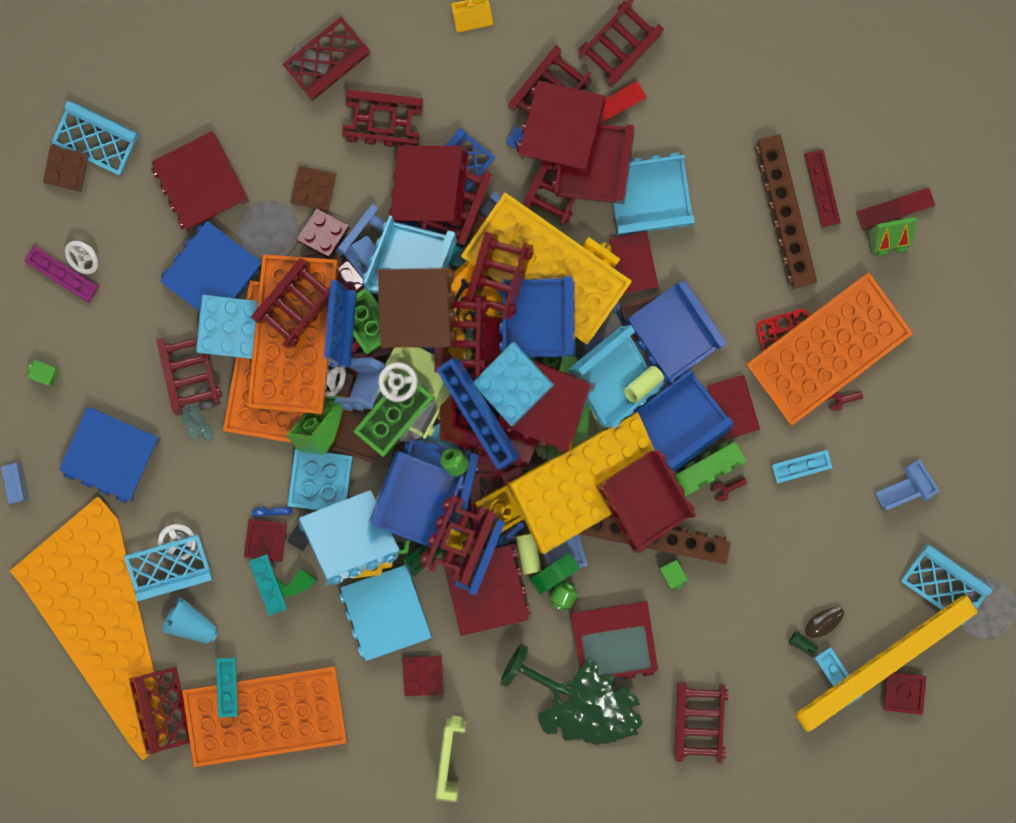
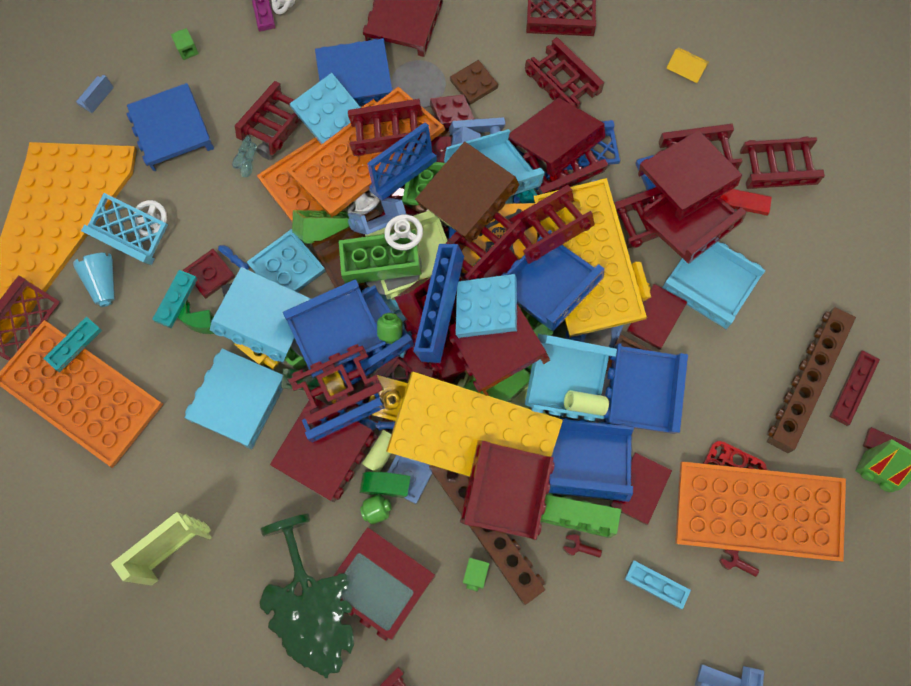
camera: 45 degrees right, 15 degrees down
(423, 675) = (215, 471): dark red plate -> none

